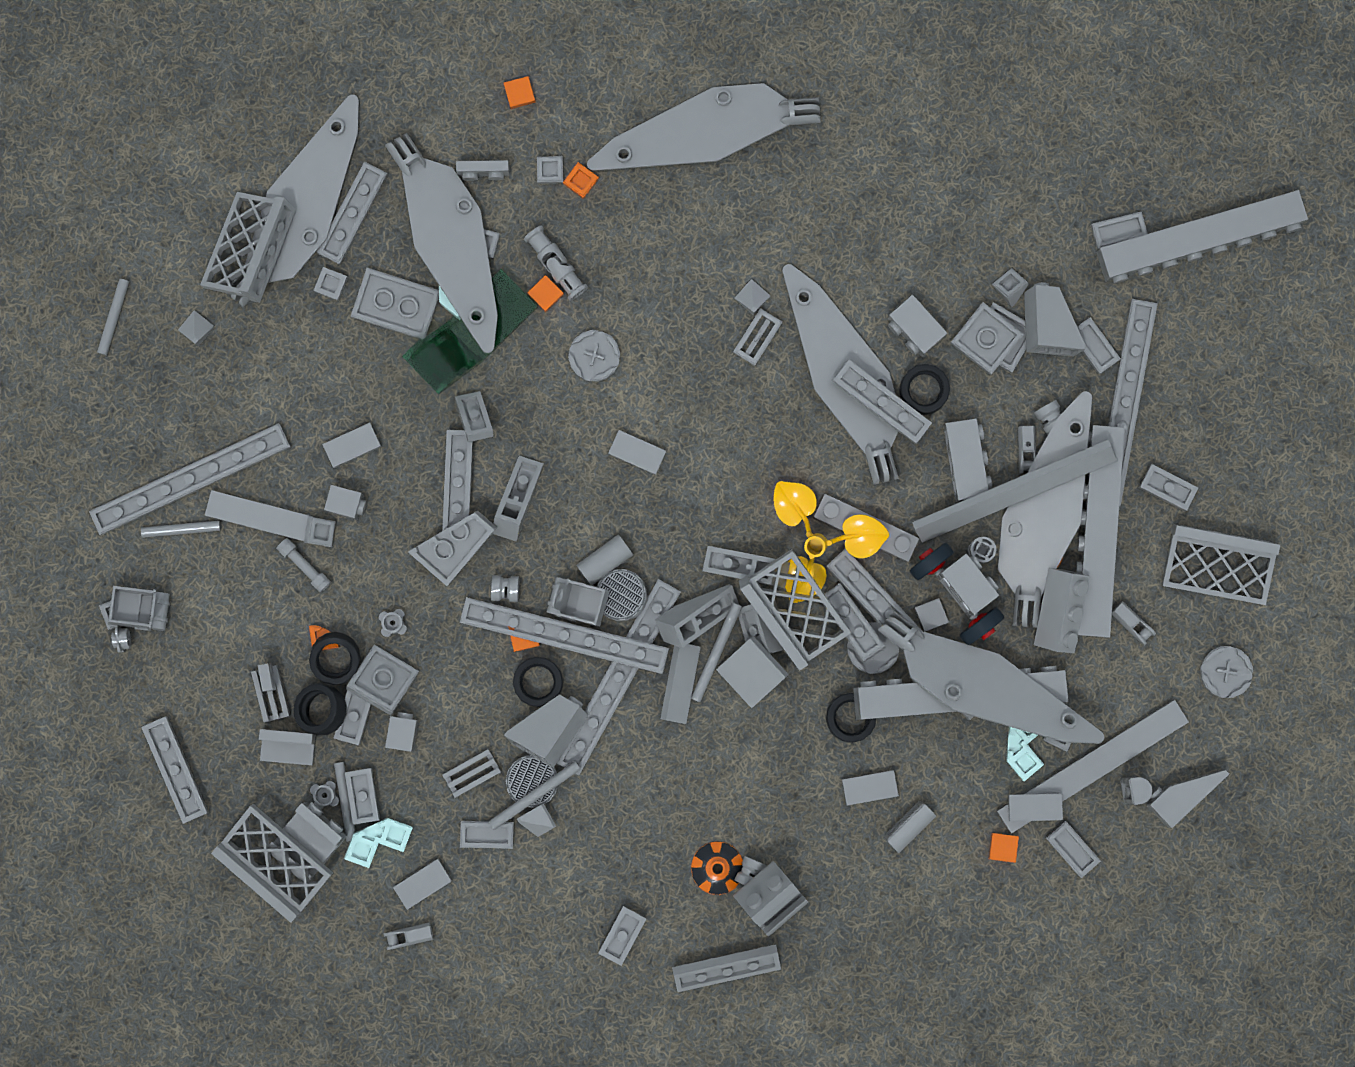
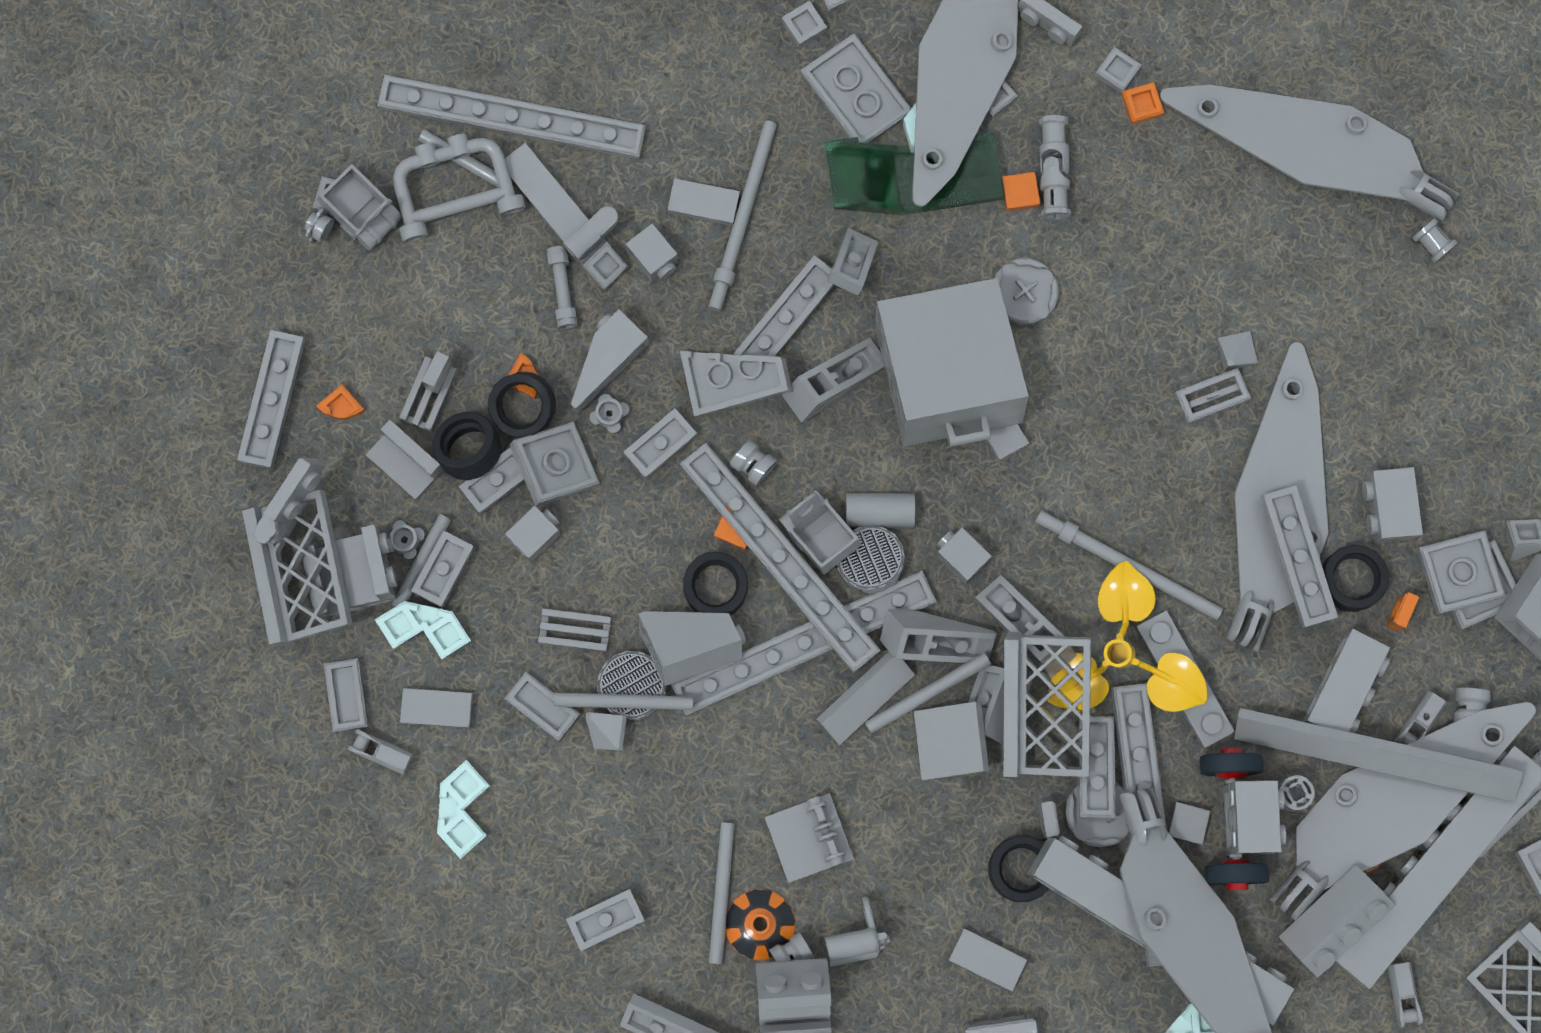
camera: 35 degrees right, 5 degrees down
(172, 525) = (429, 156): none -> light grey bar
(220, 740) = (340, 404): none -> orange tile
(236, 828) = (287, 501): none -> light grey hinge
(297, 518) = (590, 233): none -> light grey bar
(361, 917) = (346, 695): none -> light grey tile
(364, 582) = (611, 351): none -> light grey slope
(400, 483) = (724, 275): none -> light grey bar
(438, 618) = (660, 443): none -> light grey plate
(486, 945) = (455, 795): none -> light aqua tile
(582, 438) = (951, 363): none -> light grey container
(675, 551) = (962, 555): none -> light grey brick
(680, 867) = (721, 893): none -> light grey bar
(709, 794) = (809, 838): none -> light grey hinge
(730, 488) = (1069, 533): none -> light grey bar
(785, 838) = (858, 944): none -> light grey piece
(824, 137) = (1434, 240): none -> light grey bush
(846, 676) = (1048, 819): none -> light grey tile
(968, 389) = (1402, 611): none -> orange tile

